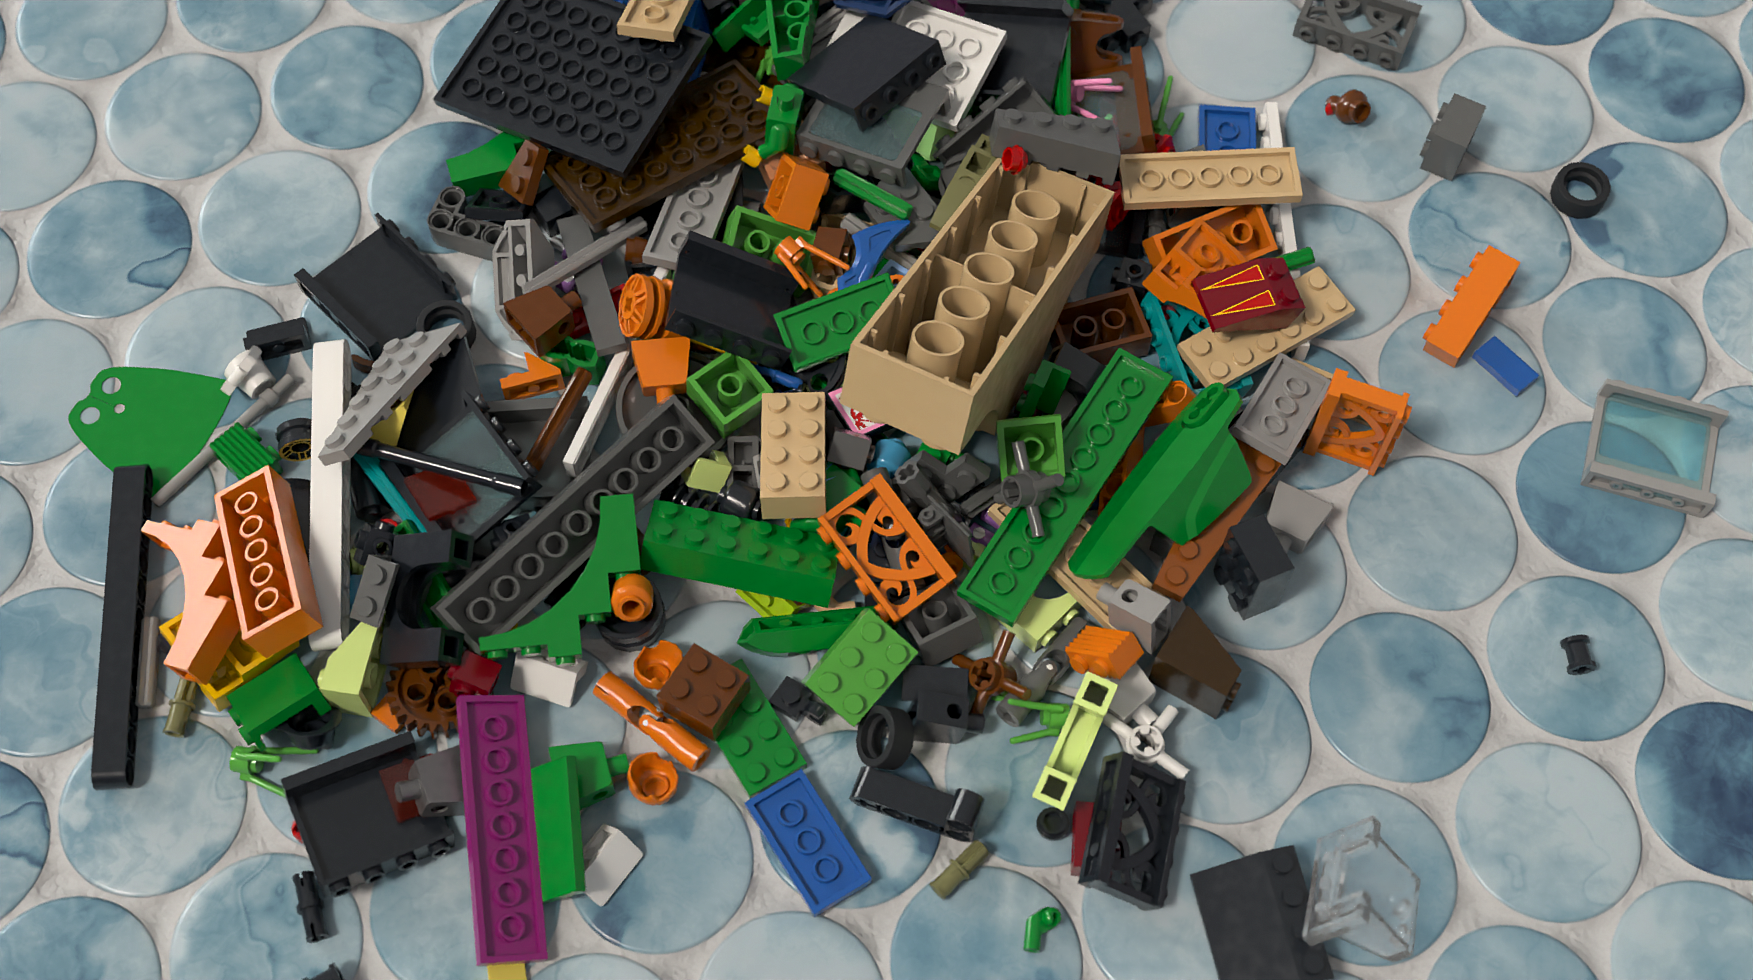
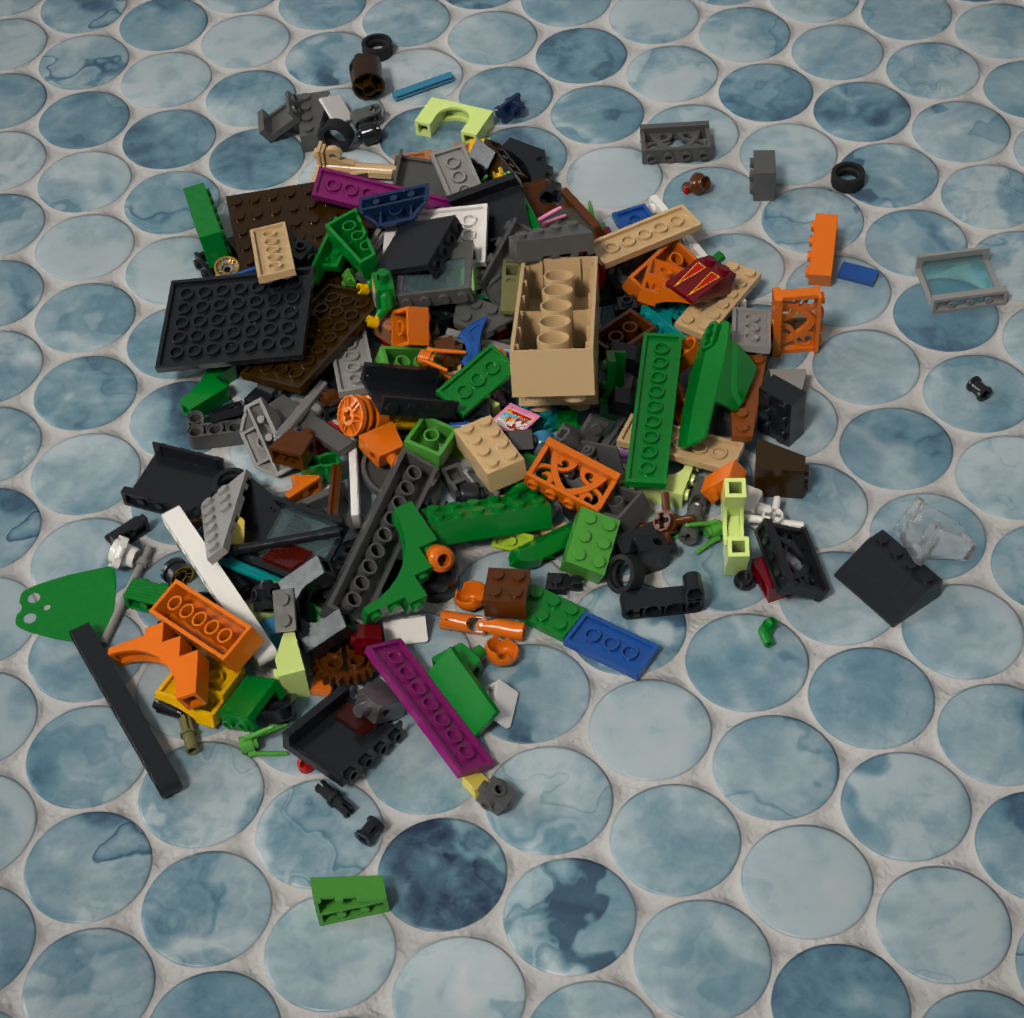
camera: 20 degrees left, 15 degrees down
(148, 663) = (153, 722): light grey axle -> none
(525, 172) = (235, 384): reddish brown wing -> none
(708, 473) = (441, 489): yellowish green panel -> none
(873, 194) = (456, 311): green axle -> none
(959, 869) = (705, 623): olive axle -> none
(1014, 159) = (533, 257): red plate -> none
(1027, 489) = (636, 413): dark grey bar -> none
(1042, 443) = (625, 394): bright green slope -> none
(1138, 611) = (732, 446): light grey torso -> none

